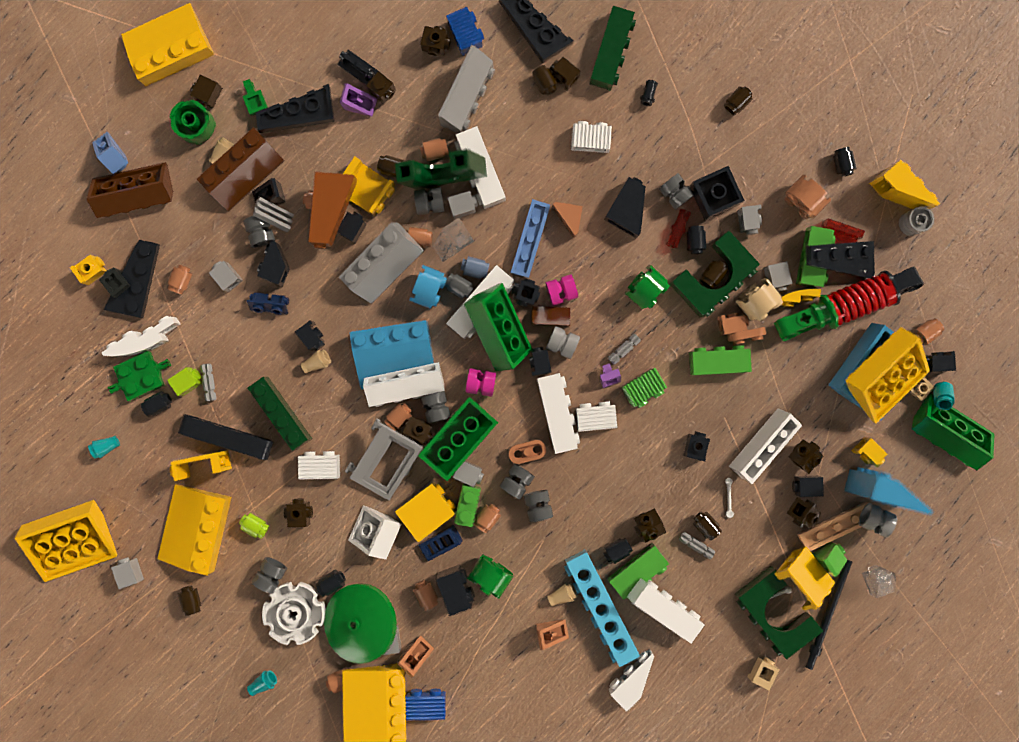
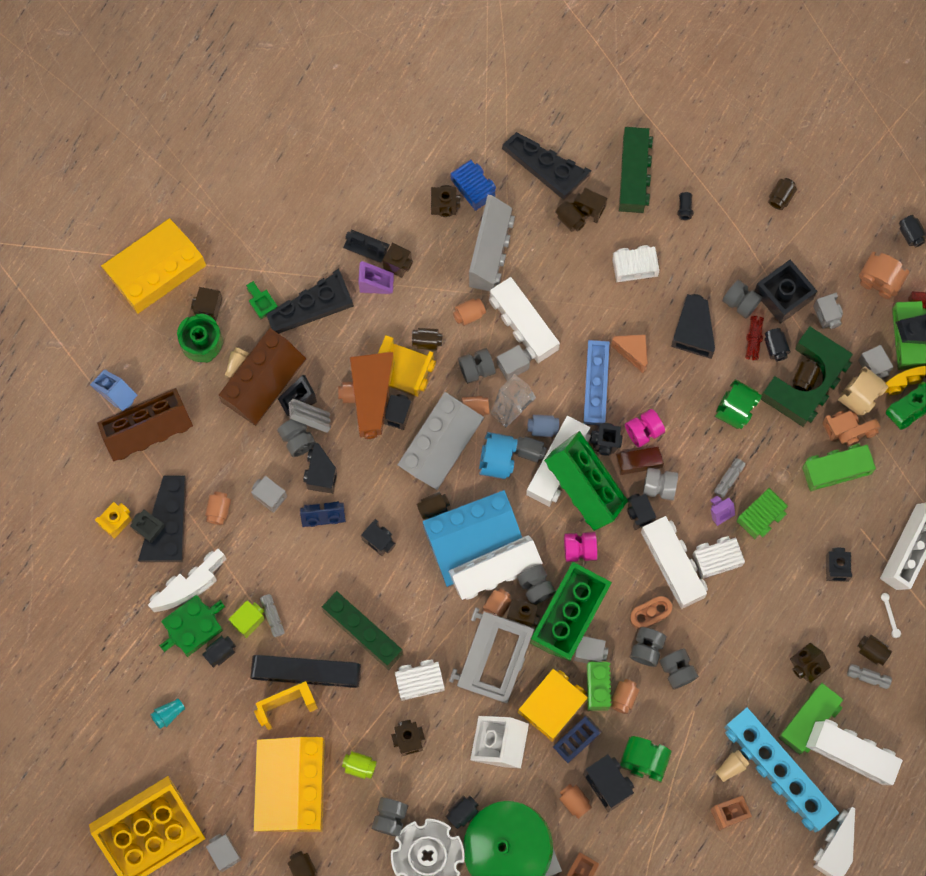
camera: 10 degrees left, 15 degrees down
(317, 361) = (391, 564): tan cone -> none
(364, 318) = (433, 505): none -> dark brown brick
(463, 166) = (511, 319): dark green arch -> none
(617, 550) = (781, 700): black brick -> none

